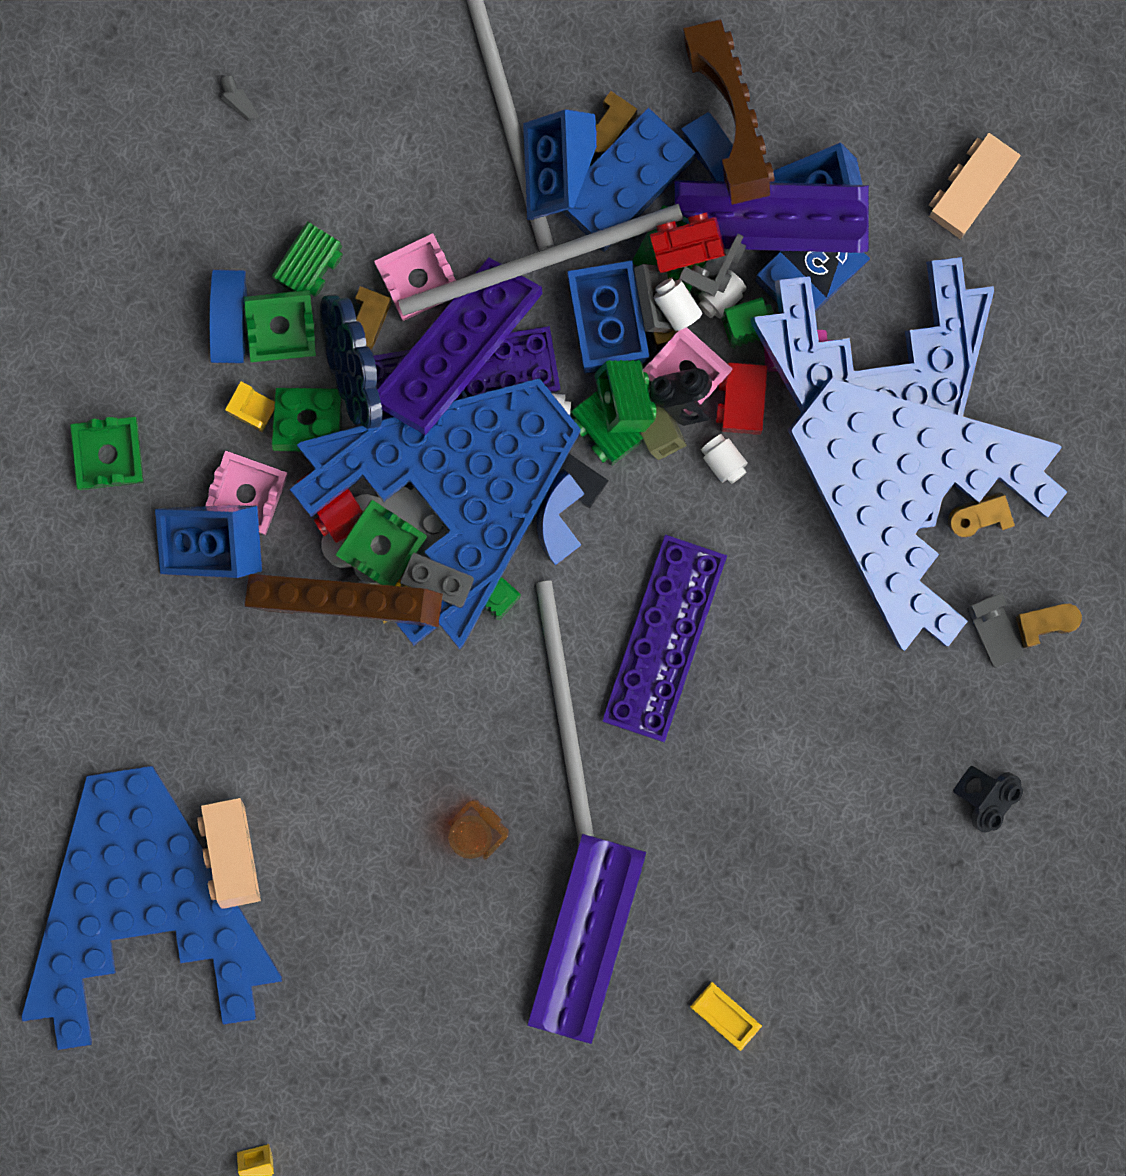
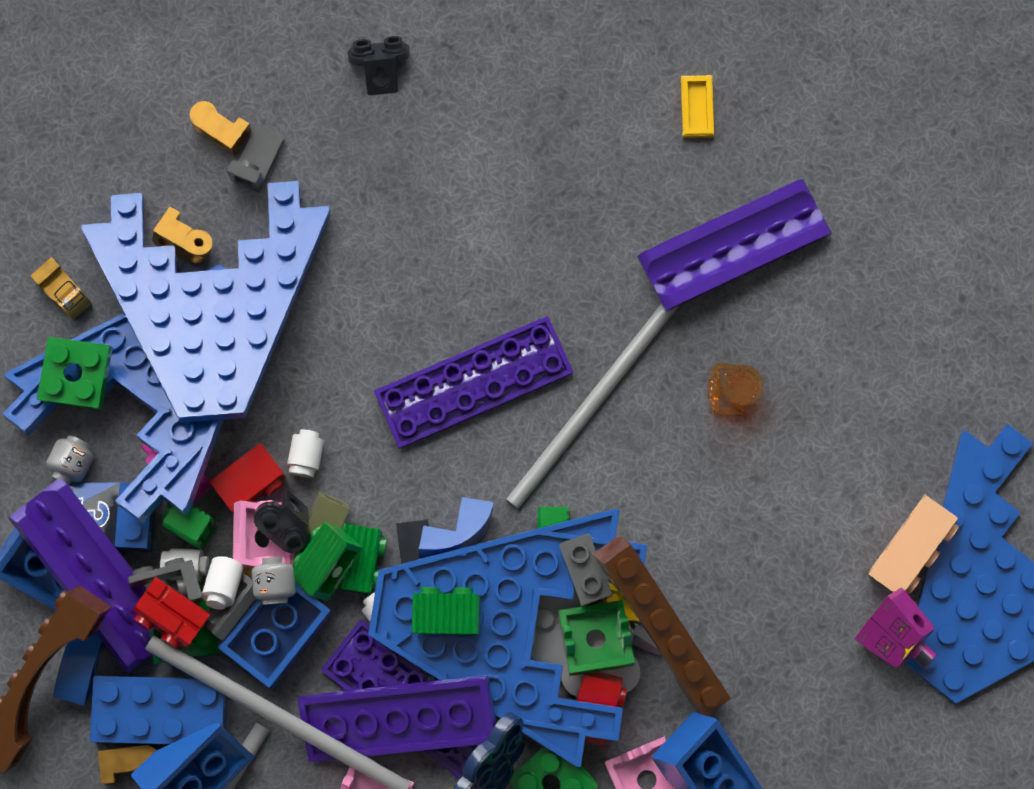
camera: 135 degrees left, 5 degrees down
(176, 778) = (898, 632): none -> magenta torso
(500, 446) = (446, 613): none -> green brick
(642, 341) = (273, 581): none -> light grey head
(880, 278) = (70, 460): none -> light grey head
(937, 357) = (90, 388): none -> green piece
(1023, 388) = (61, 288): none -> pearl gold leg

